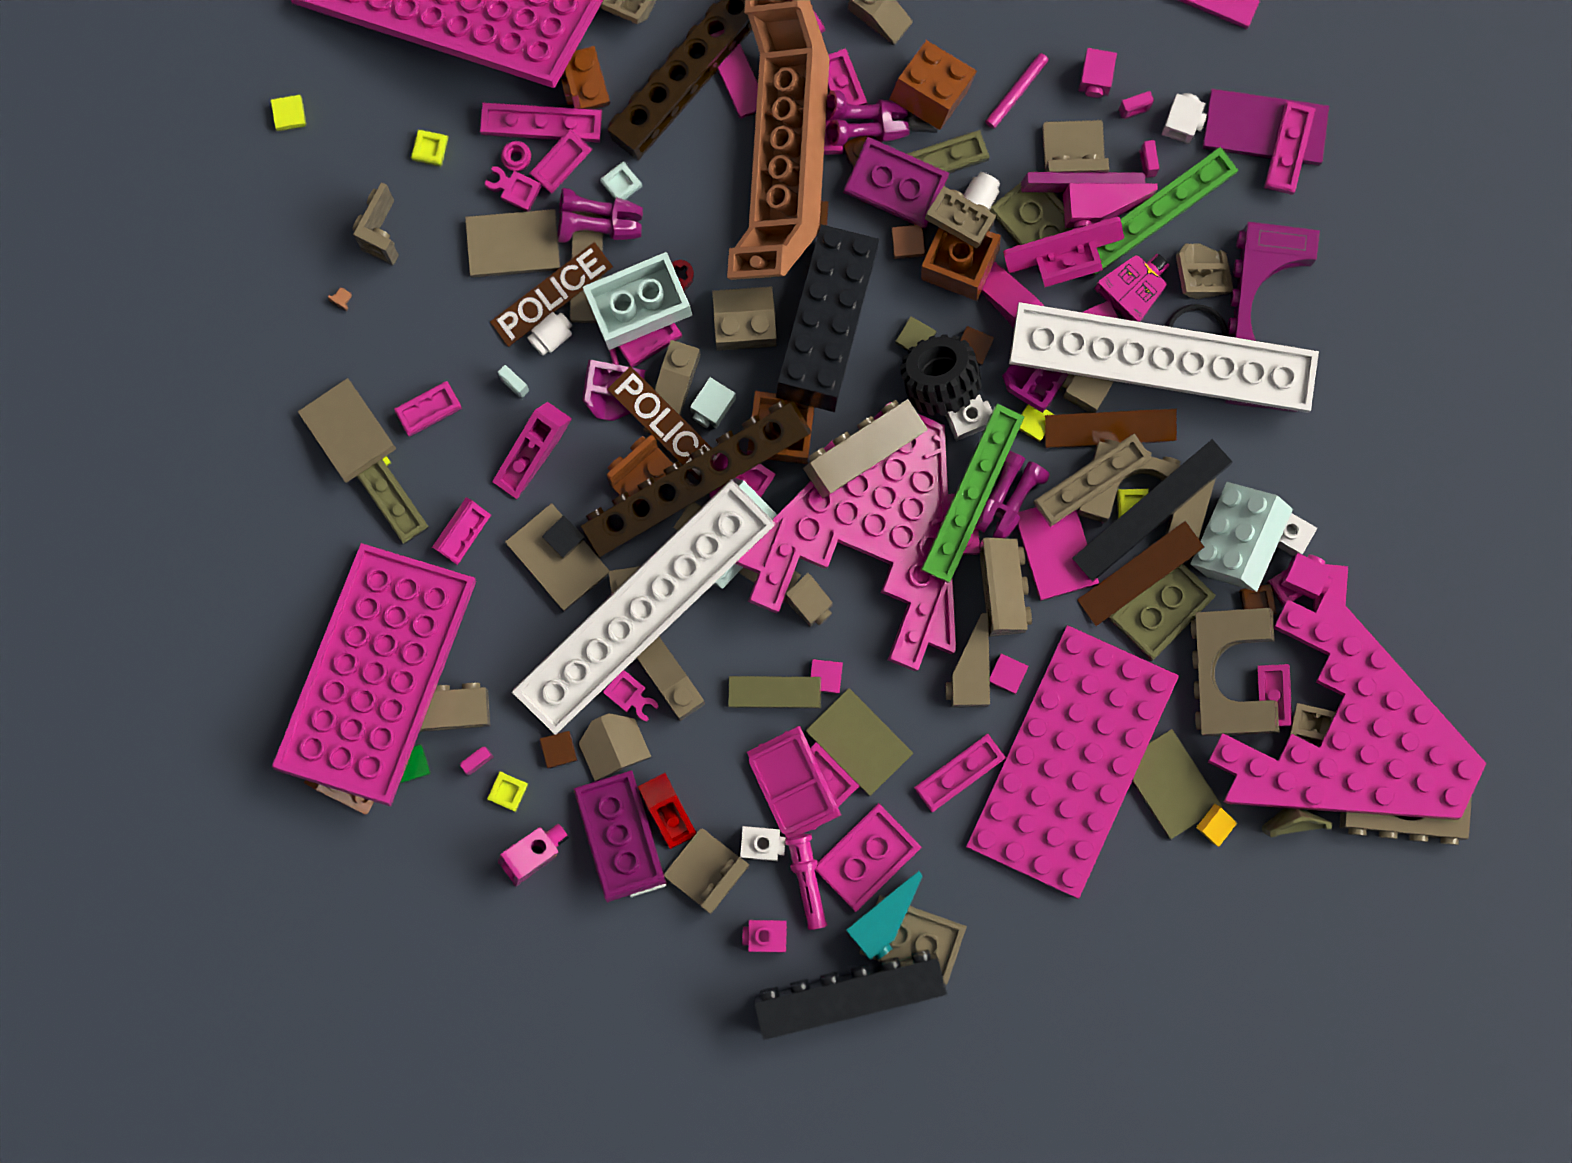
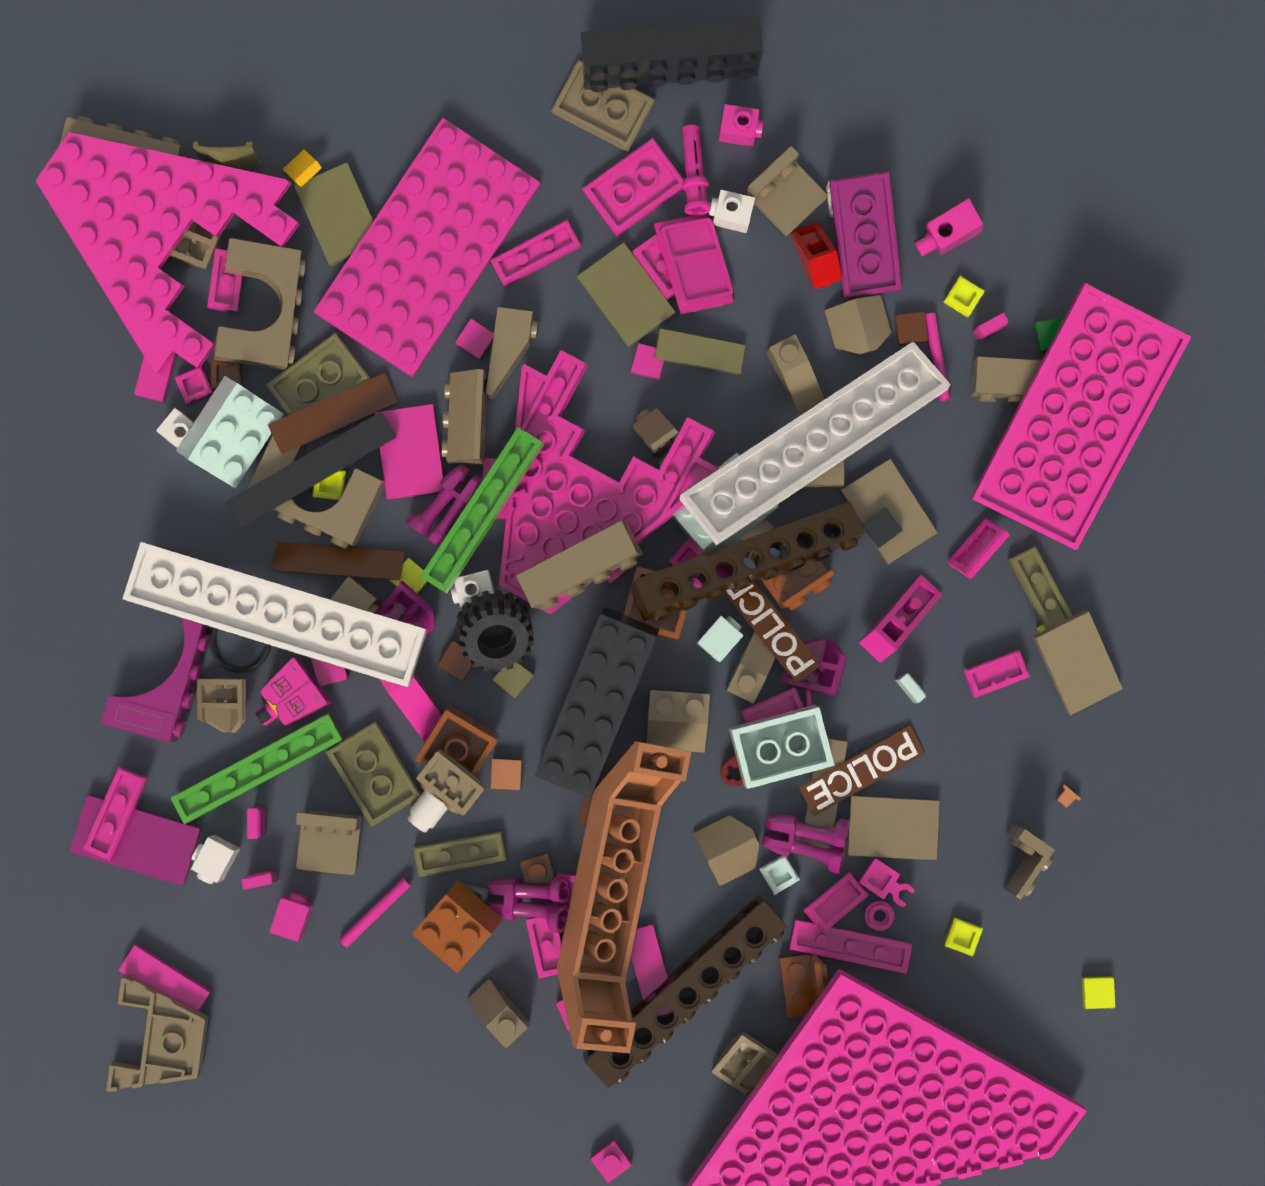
camera: 170 degrees left, 5 degrees up
(529, 730) = (936, 349): none -> dark pink bar
(550, 333) = (868, 730): white brick -> none
(627, 692) = (838, 370): dark pink plate -> none
(676, 200) = (728, 848): none -> dark tan slope
(881, 924) = (633, 117): teal slope -> none
(895, 182) = (509, 833): magenta tile -> none
(1060, 180) = (325, 806): magenta tile -> none
(1067, 253) = (352, 734): dark pink bracket -> none
(1092, 480) = (364, 506): dark tan tile -> none
(1094, 202) = (319, 783): dark pink slope -> none
(1307, 576) = (173, 386): dark pink brick -> none

